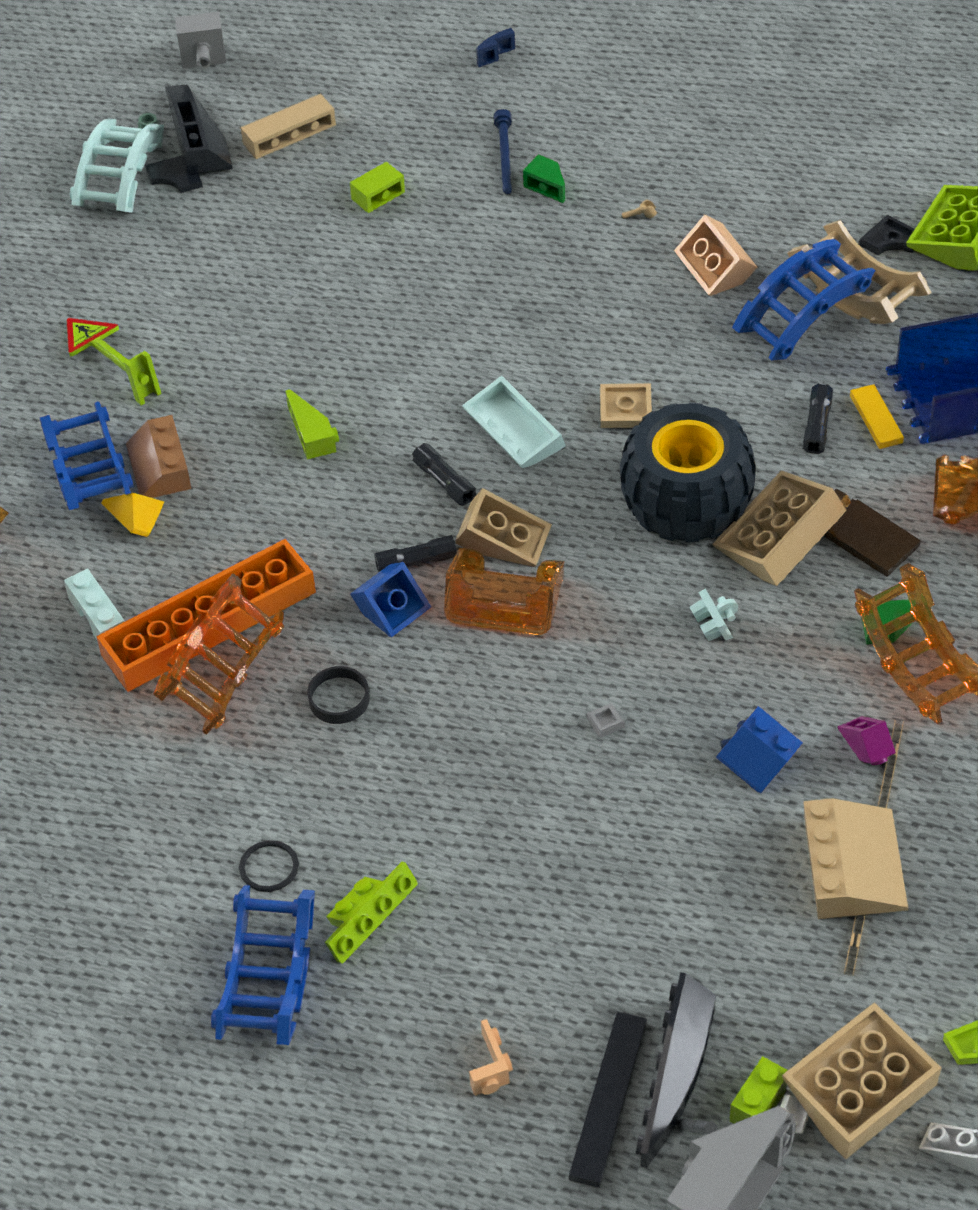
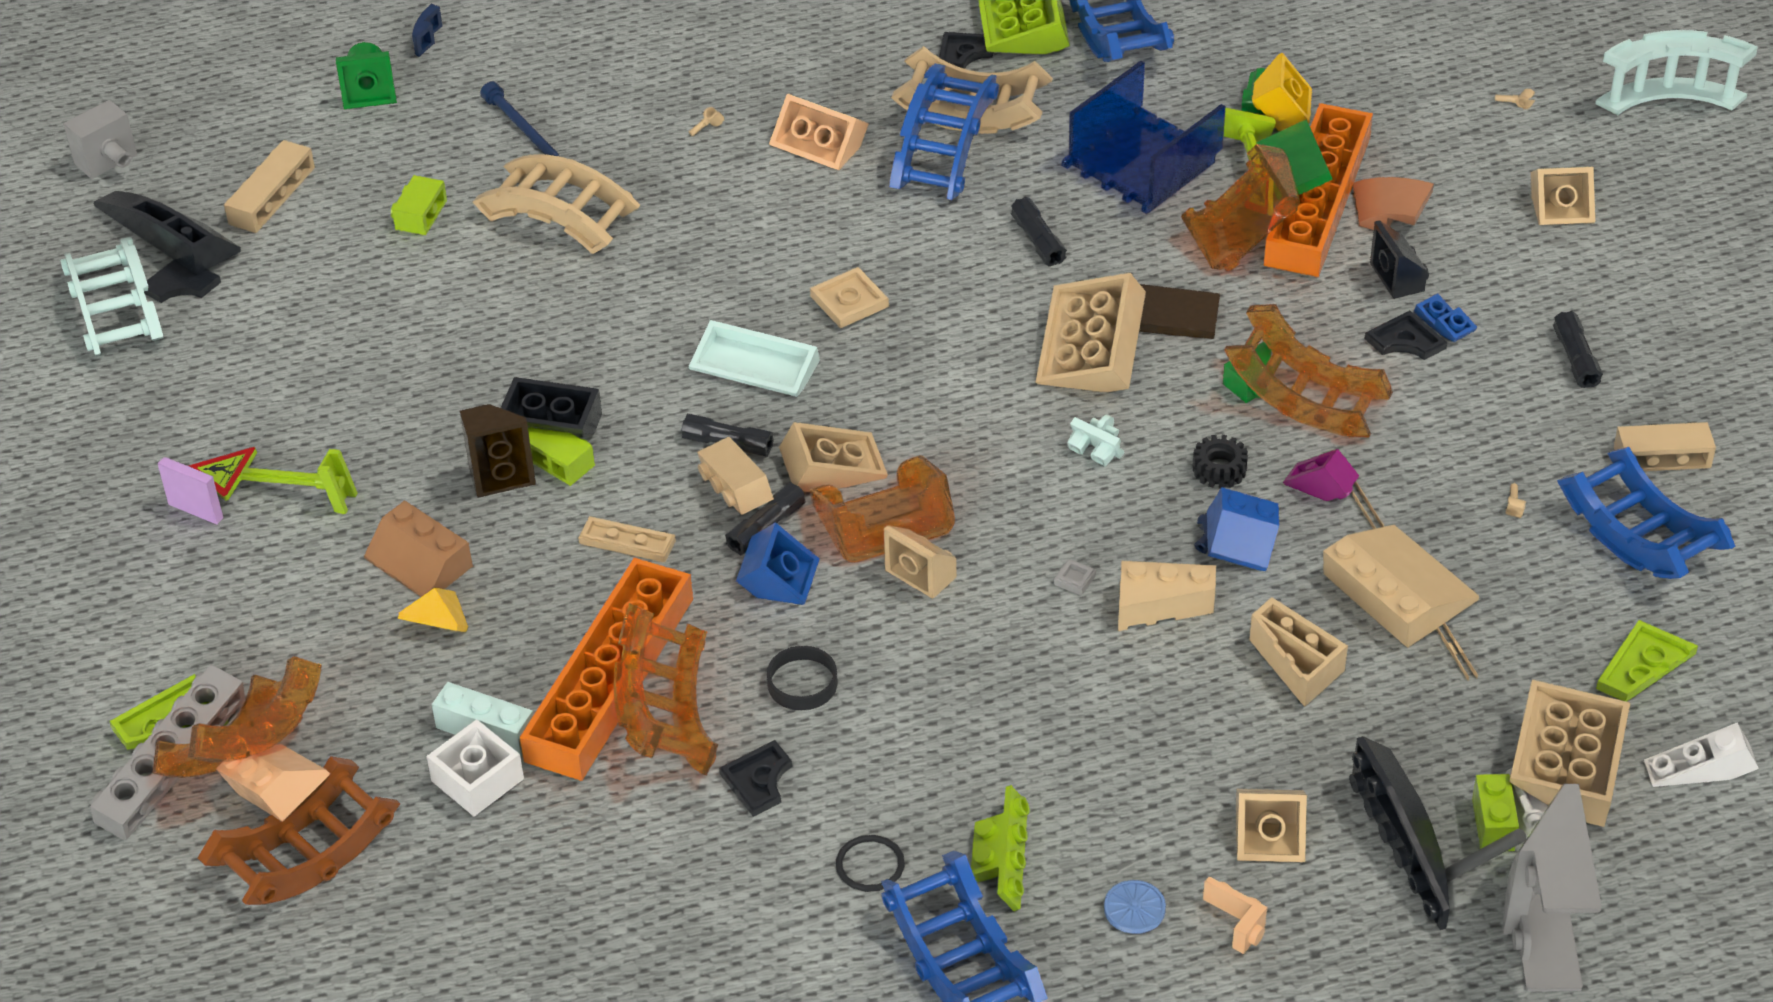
camera: 35 degrees left, 5 degrees down
(45, 337) = (190, 490): none -> lavender tile
(58, 643) = (475, 767): none -> white slope
(73, 492) = (336, 616): blue fence -> none
(146, 119) = (104, 242): sand green plate -> none
(245, 753) = (756, 776): none -> black tile
(256, 406) = (497, 449): none -> dark brown slope
(309, 521) = (627, 539): none -> tan tile
(330, 392) = (554, 405): none -> black slope
(414, 510) = (734, 476): none -> tan brick
(417, 67) = (366, 77): none -> green plant
(424, 1010) = (1134, 906): none -> medium blue wheel
(438, 213) = (546, 207): none -> tan fence
(494, 645) = (918, 561): none -> tan slope
(545, 178) = (589, 128): green slope -> none
(577, 1003) = (1271, 825): none -> tan slope
(607, 1100) = (1365, 890): black tile -> none
(655, 768) = (1164, 591): none -> tan wedge
(687, 472) = (976, 321): black wheel -> none
(718, 874) = (1297, 649): none -> tan wedge
(797, 670) = (1220, 473): none -> black tyre
(876, 416) = (1086, 208): yellow tile -> none

